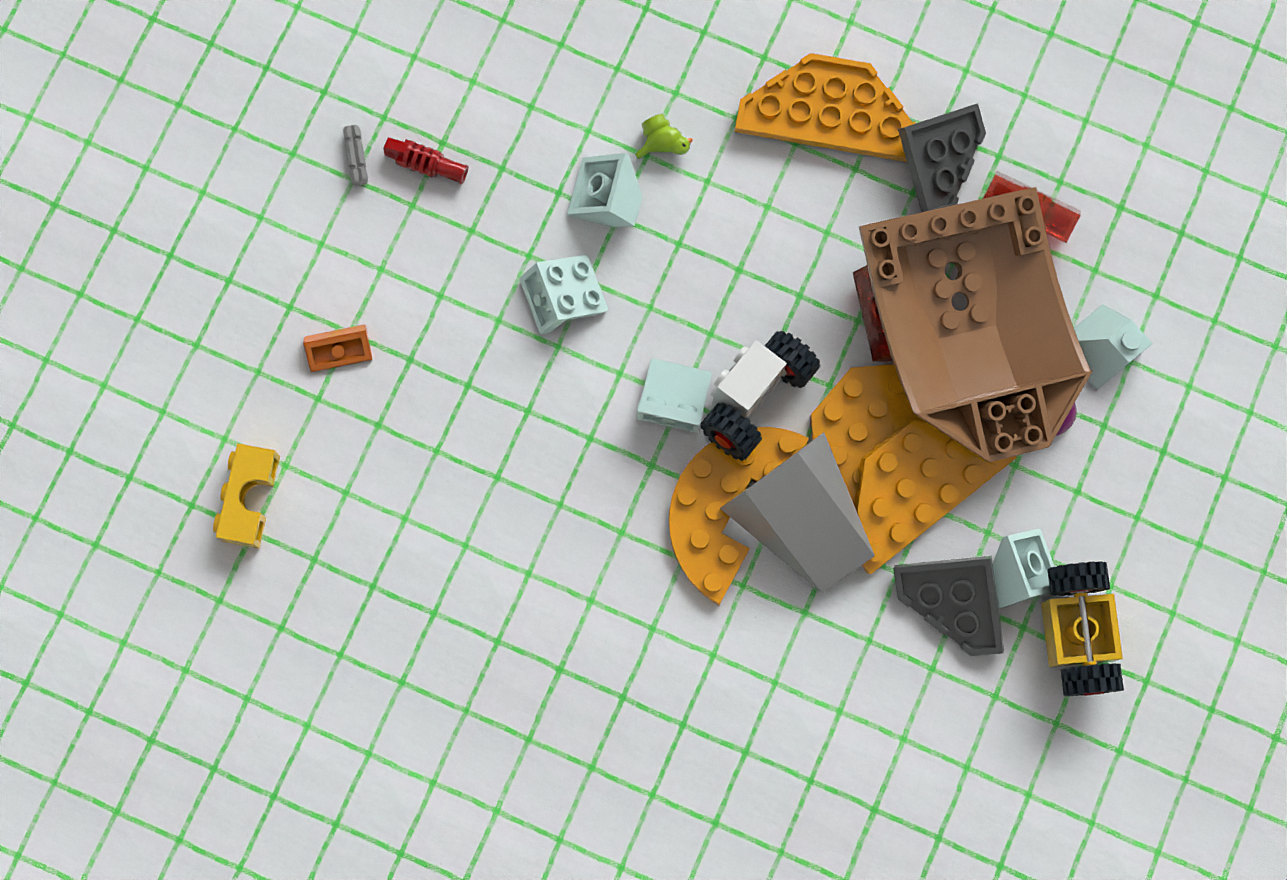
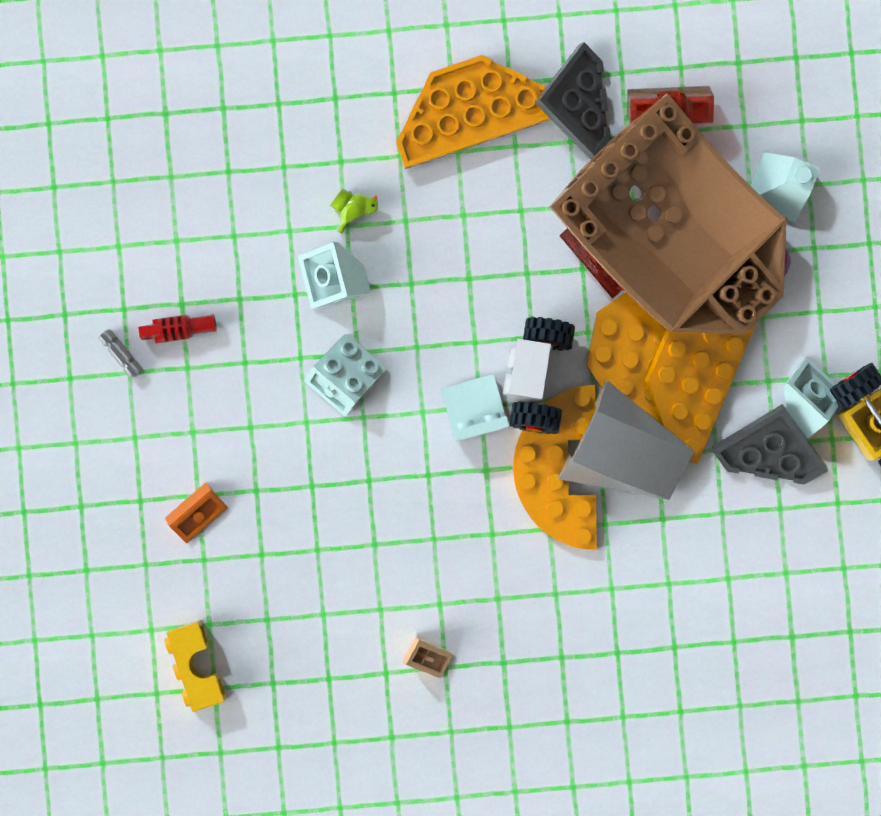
camera: 25 degrees left, 10 degrees up
(485, 616) = (427, 657): none -> light nougat slope

